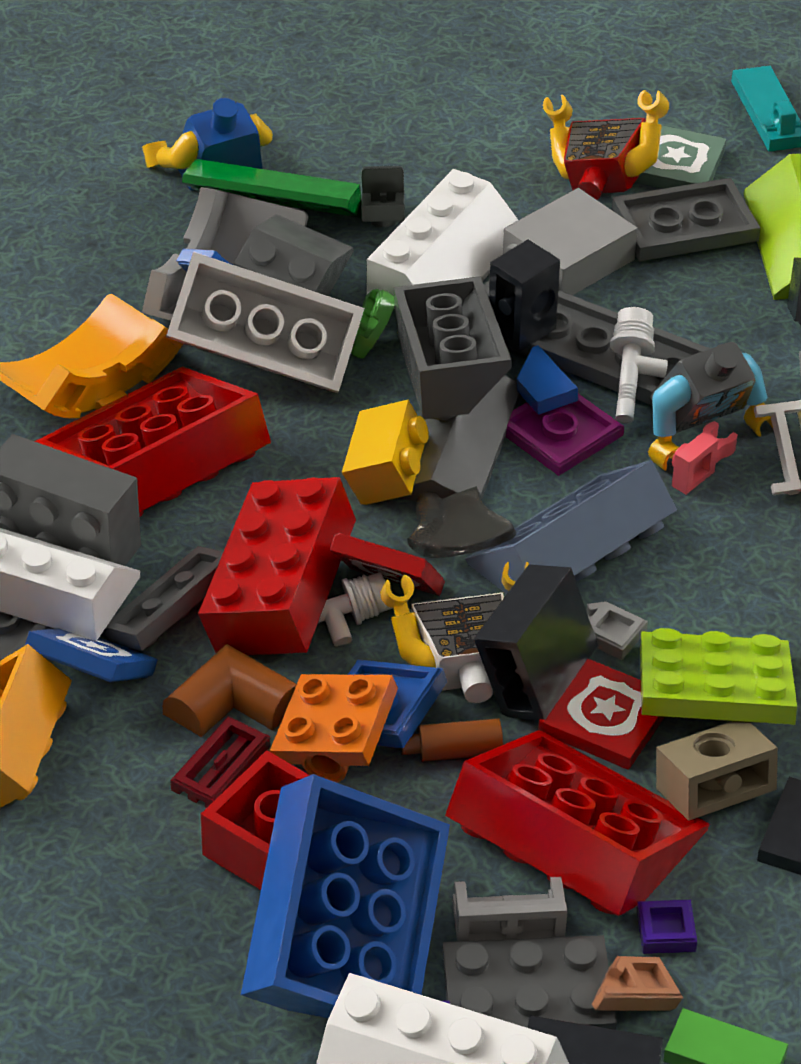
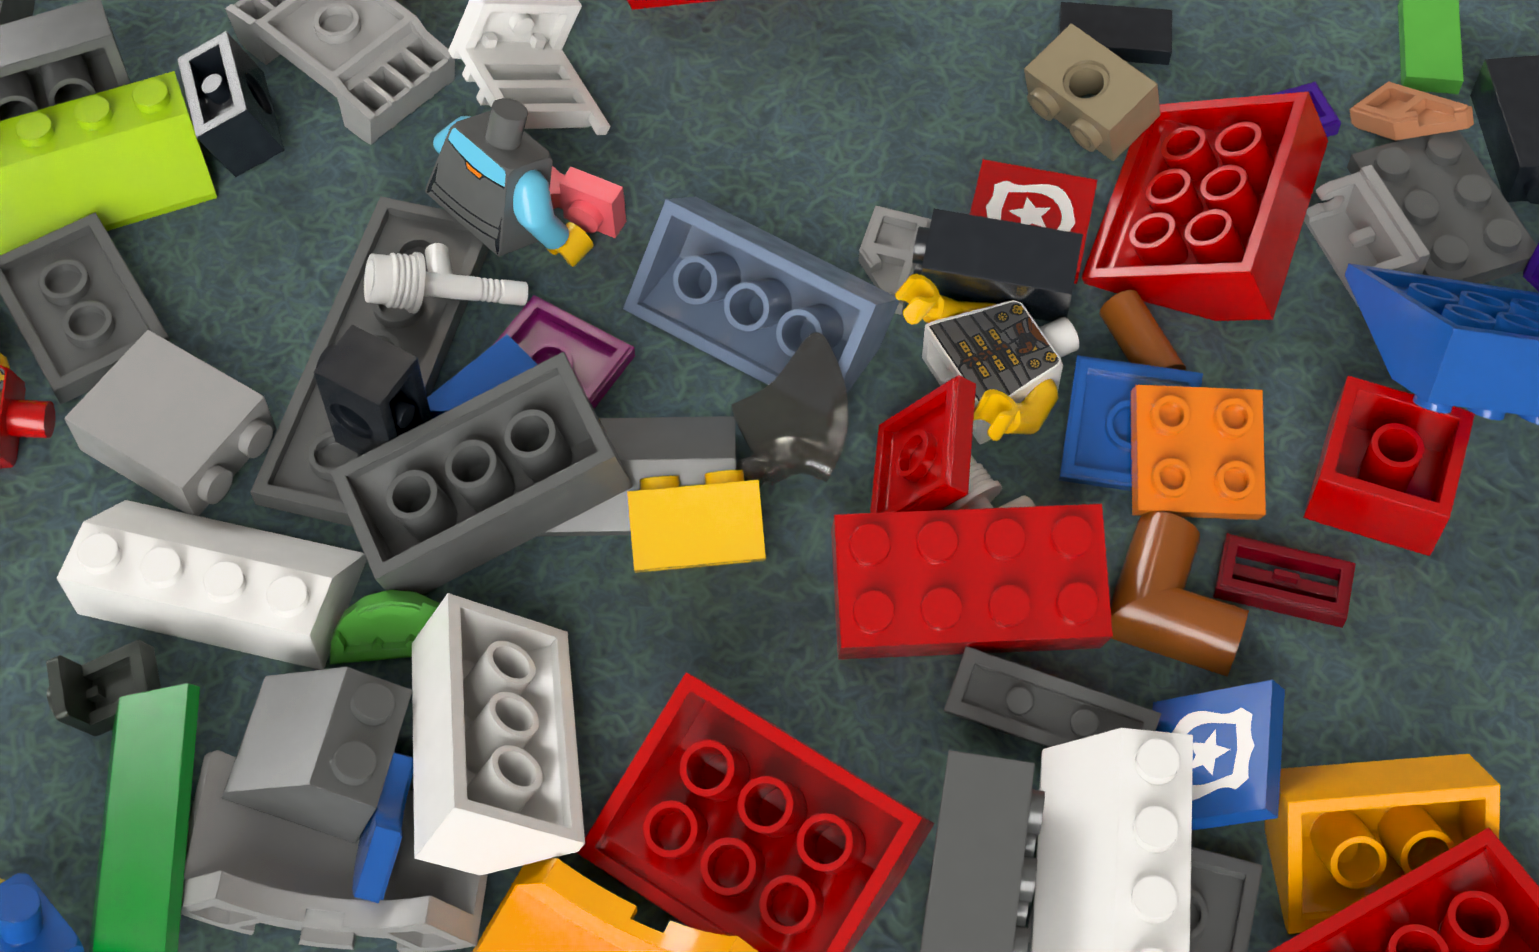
camera: 105 degrees left, 15 degrees up
(717, 677) = (960, 114): lime plate -> none

